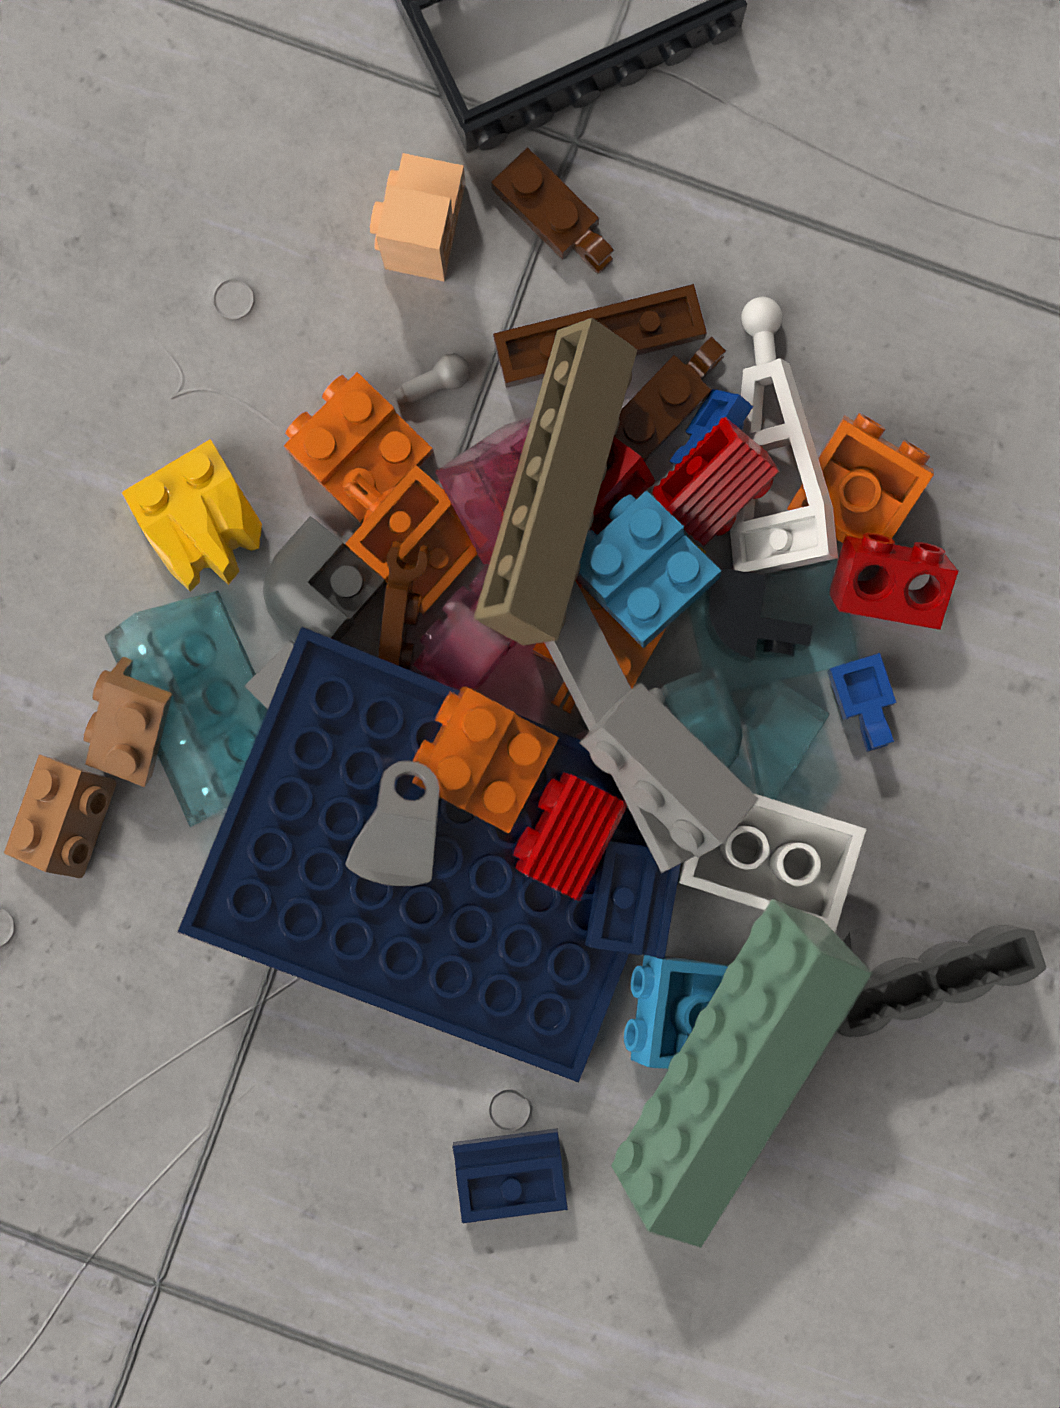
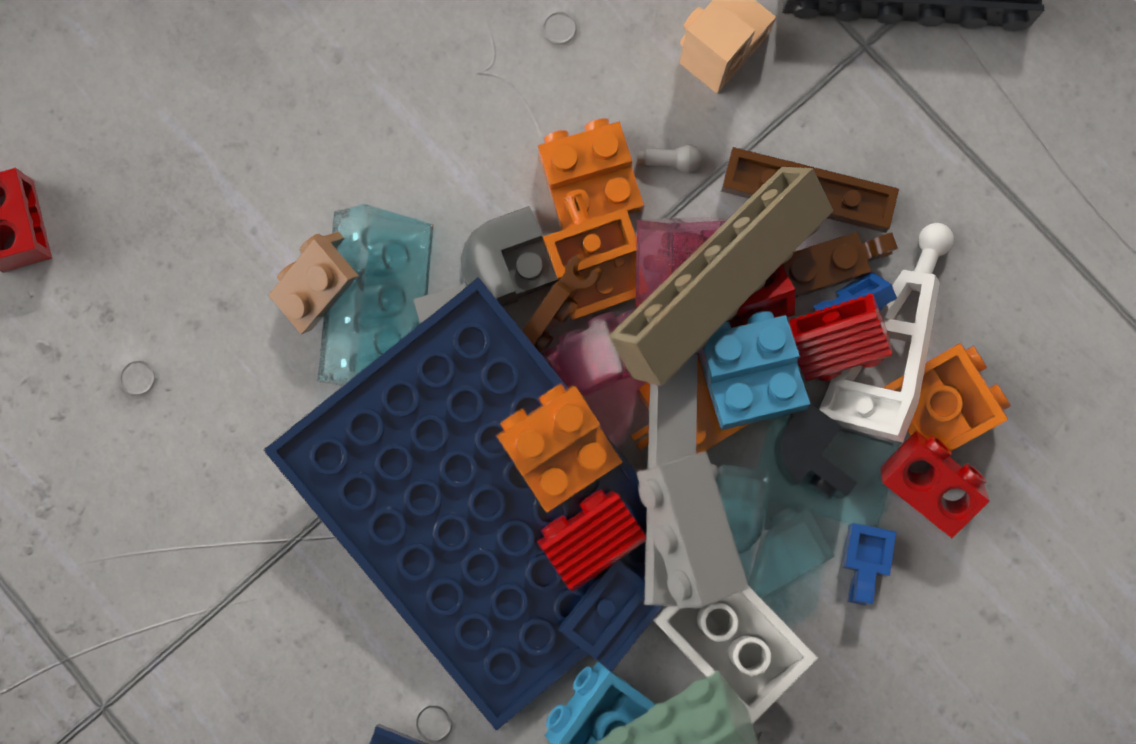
camera: 30 degrees right, 5 degrees down
(60, 817) = (229, 325): medium nougat bracket -> none
(195, 515) = (447, 162): yellow plate -> none
(400, 834) = (466, 466): light grey piece -> none
(552, 210) = (822, 84): reddish brown plate -> none

